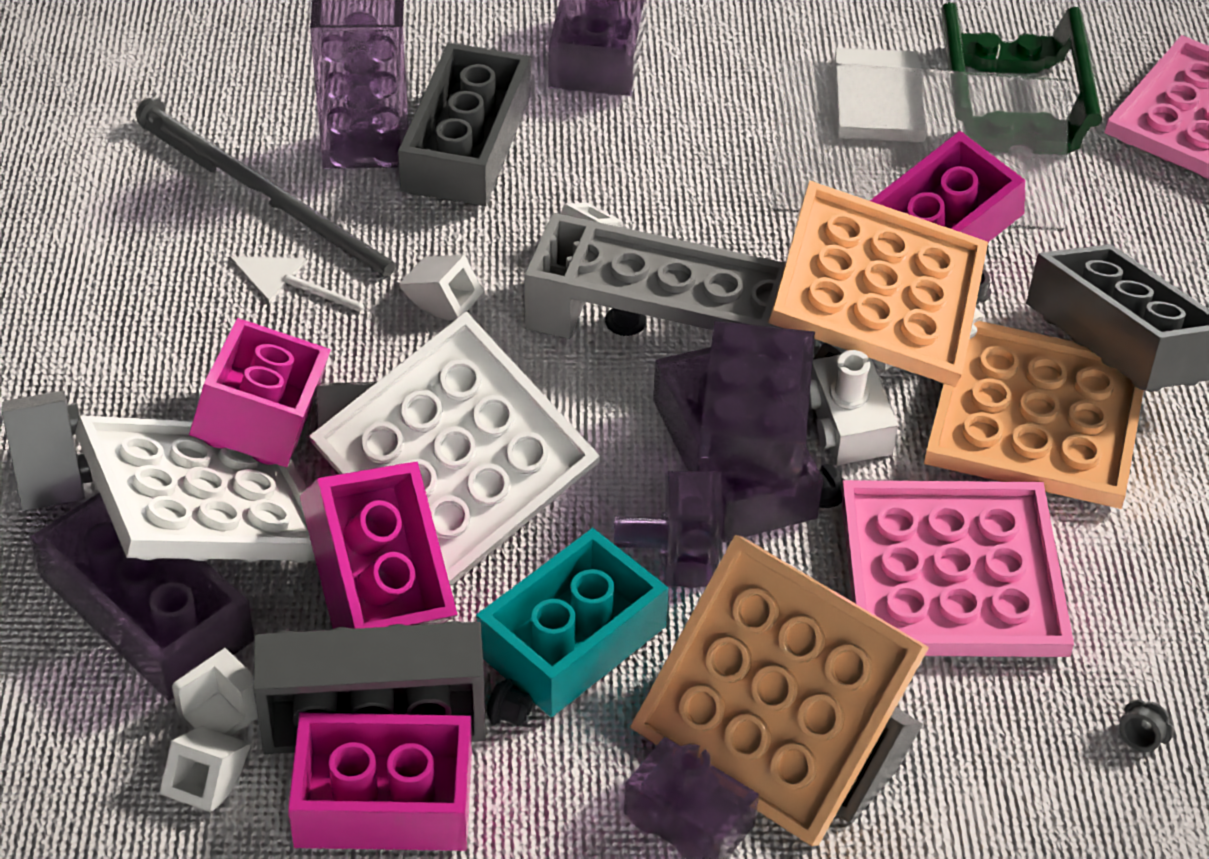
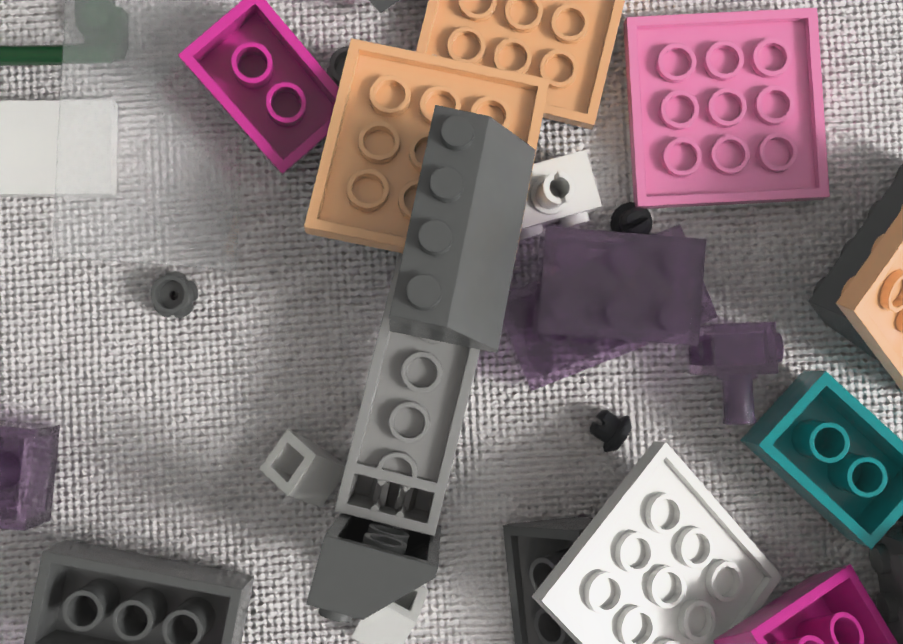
camera: 90 degrees left, 40 degrees up
(512, 217) = (370, 567): none -> dark grey slope
(612, 459) = (612, 431): none -> black piece
(748, 163) = (162, 291): none -> dark grey plate
(809, 261) = (463, 232): none -> dark grey slope

